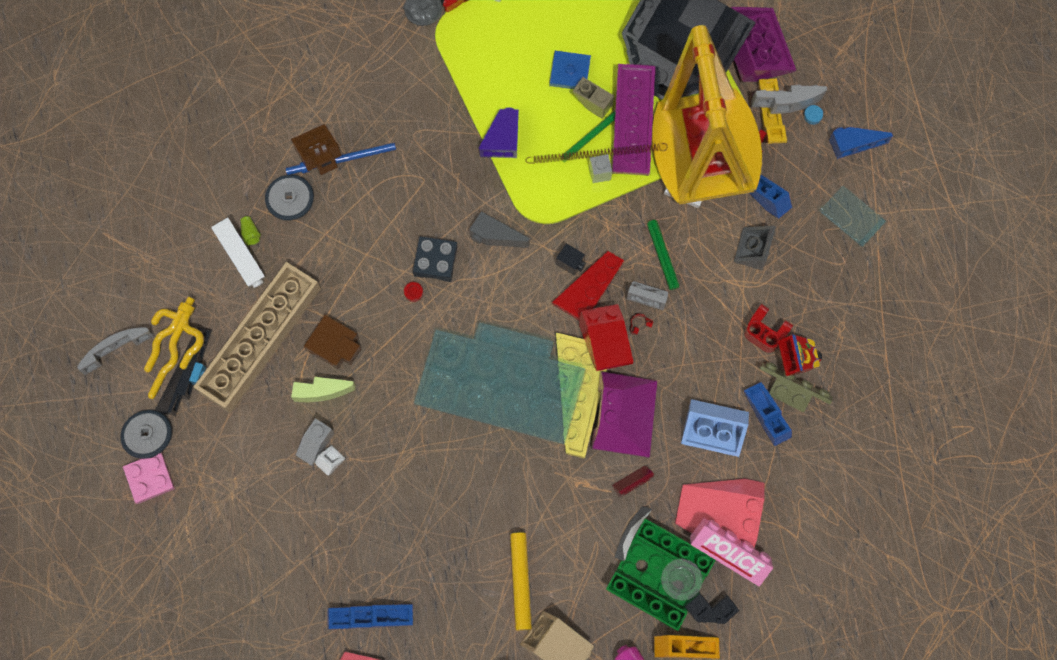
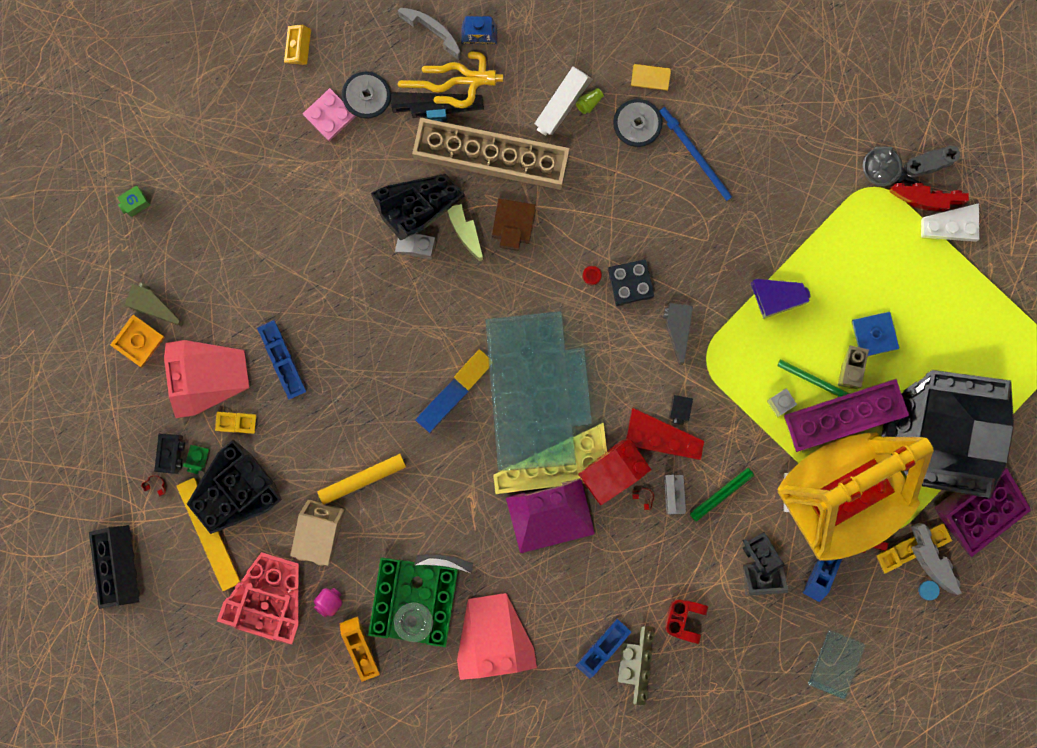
camera: 70 degrees right, 10 degrees up
(64, 482) = (297, 45): none -> yellow slope
(134, 303) = (479, 30): none -> blue torso
(252, 170) = (650, 77): none -> yellow slope
(275, 425) = (416, 203): none -> black wedge
(317, 149) = (693, 128): reddish brown piece -> none
(329, 460) = (406, 265): white slope -> none
(457, 434) = (473, 370): none -> yellow slope
(480, 476) = (441, 406): none -> blue slope
(599, 153) = (805, 414): piece -> none
(633, 481) = (491, 545): dark red slope -> none
(715, 428) = (570, 604): light blue slope -> none
(718, 613) = (401, 667): black tile -> none
(731, 551) = (457, 659): bright pink brick -> none
(732, 237) = (764, 554): none -> black bracket
(799, 355) = (668, 659): red torso -> none
(855, 140) = (916, 640): blue slope -> none

